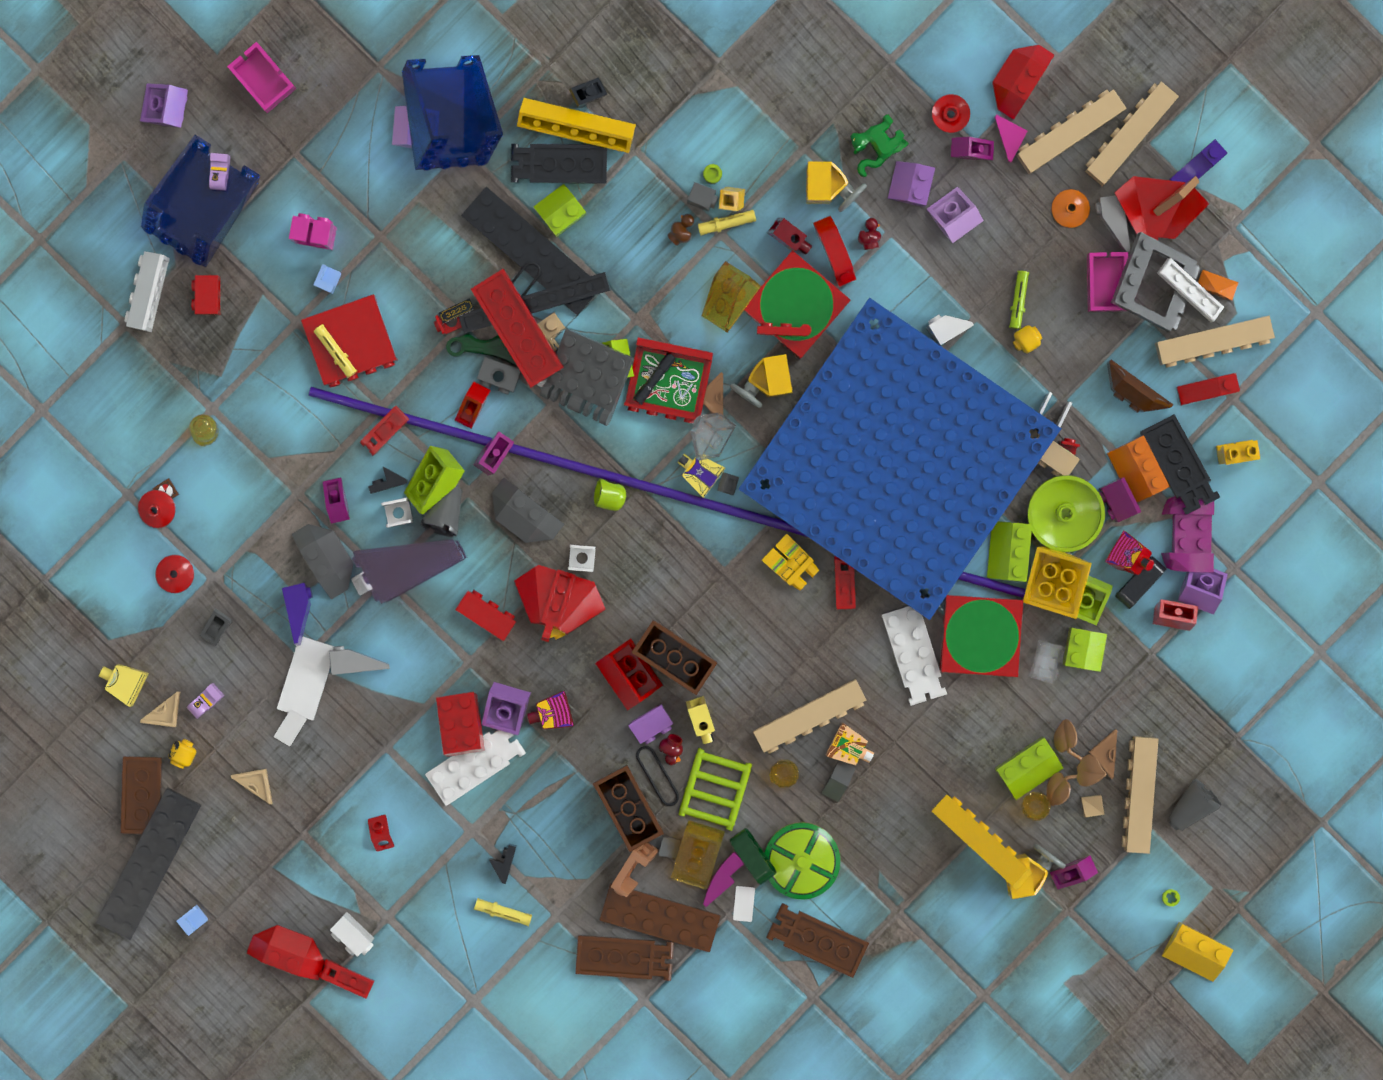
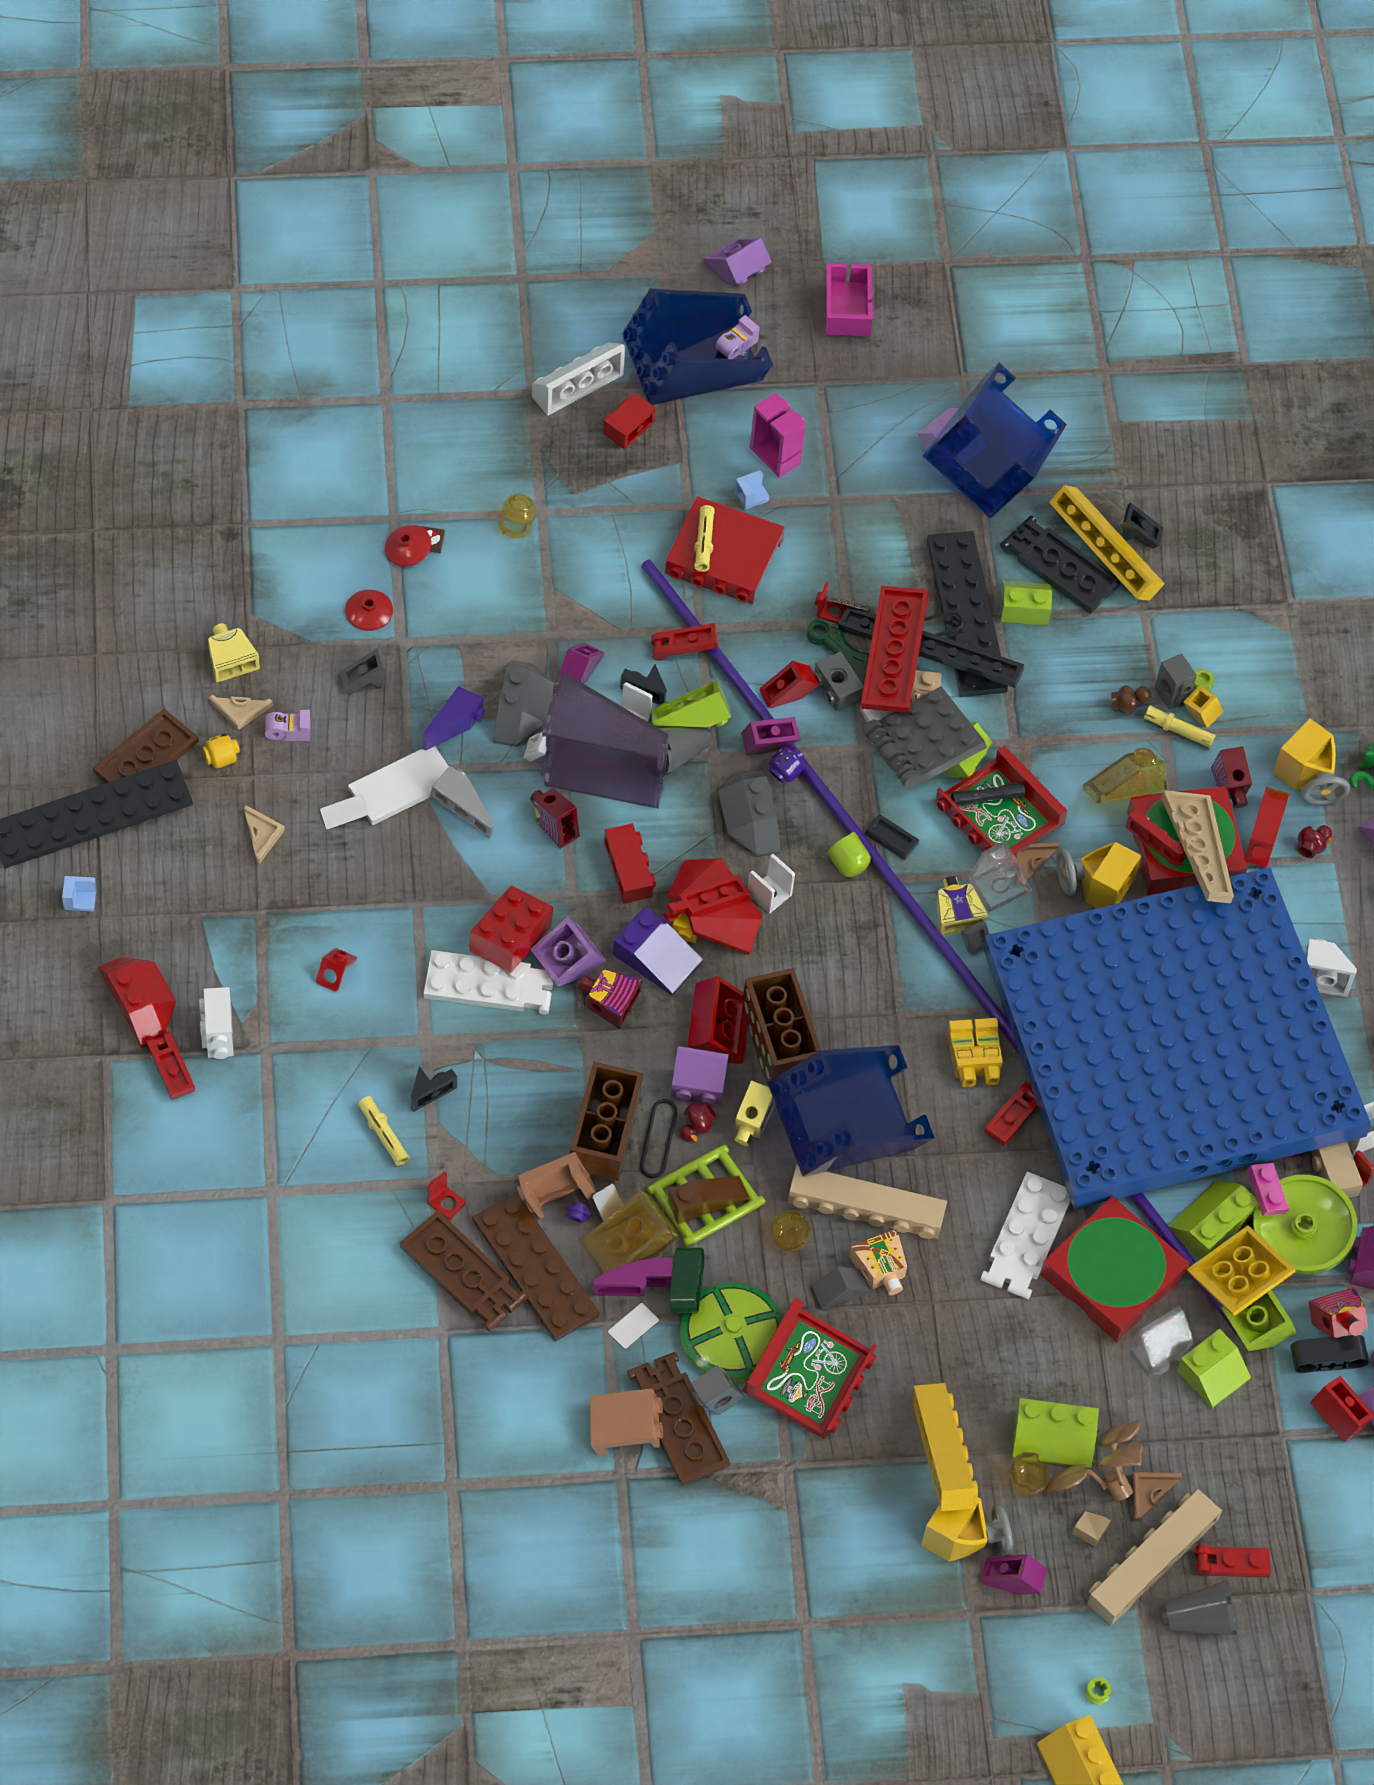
camera: 35 degrees right, 30 degrees down
(422, 624) = (556, 816): none -> dark red torso
(520, 465) = (786, 764): none -> dark purple head
(554, 659) = (656, 951): none -> slope
(566, 921) = (437, 1191): none -> red bracket
(620, 455) = (892, 837): none -> black tile
(655, 866) = (577, 1212): none -> dark purple plate
(720, 794) = (705, 1196): none -> reddish brown slope
(757, 677) = (845, 1109): none -> clear blue windscreen
(793, 972) = (625, 1419): none -> nougat panel
(806, 308) = (1199, 835): none -> tan wing
(829, 911) = (717, 1390): none -> dark grey brick
(866, 849) = (809, 1371): none -> panel
(1030, 514) = (1267, 1189): none -> dark pink plate
(1184, 757) = (1233, 1561): none -> red plate

